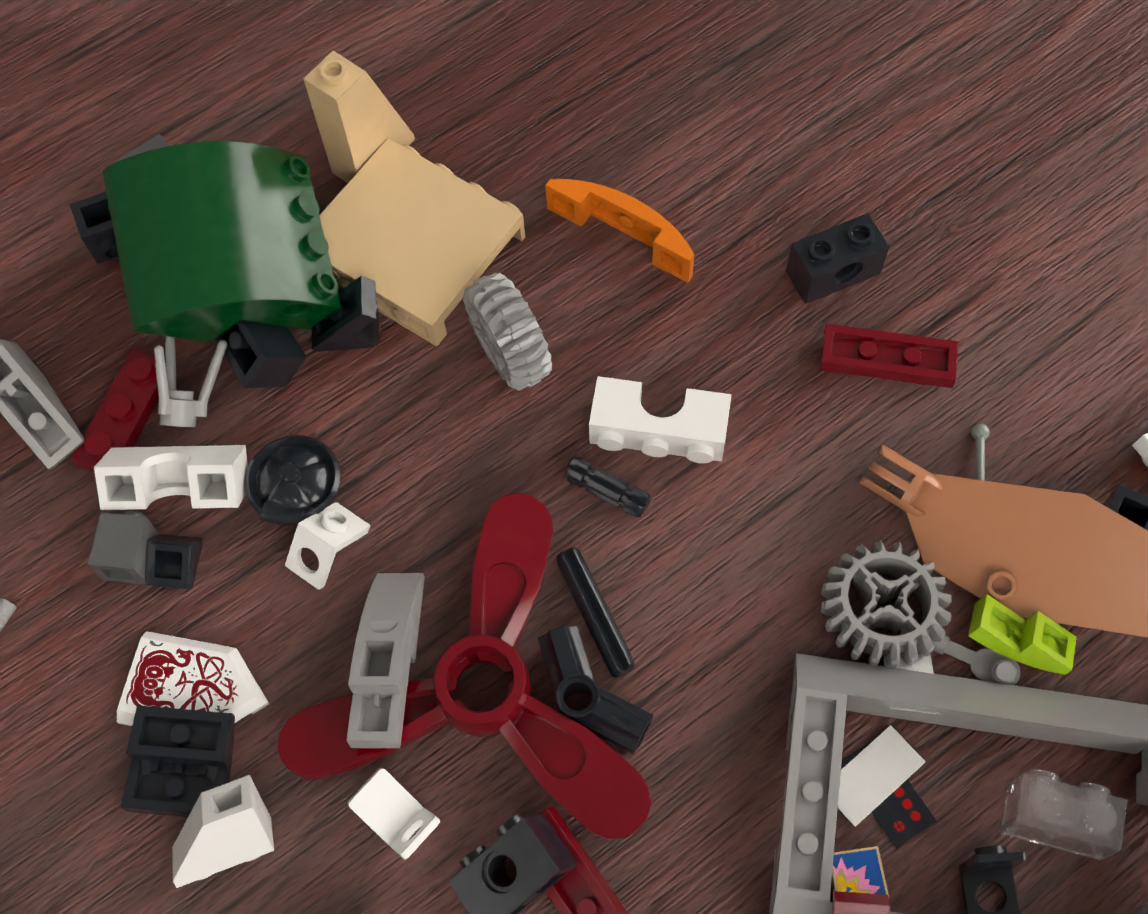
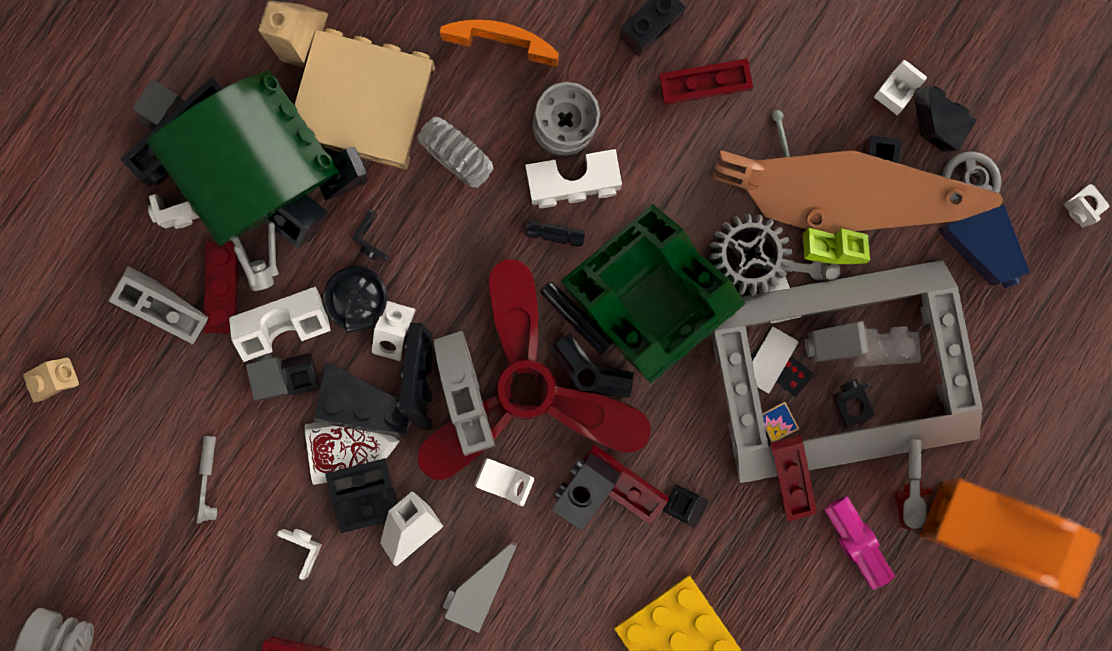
camera: 25 degrees left, 20 degrees up
(68, 818) = (303, 538): none -> white bracket
(100, 299) = (177, 216): none -> white bracket
(233, 629) = (357, 405): none -> black wing
(317, 627) = (415, 388): none -> black wing
(335, 406) = (360, 233): none -> black bracket
(674, 335) = (565, 102): none -> light grey wheel
(722, 609) = (652, 293): none -> dark green slope
(990, 772) = (837, 342): none -> light grey slope

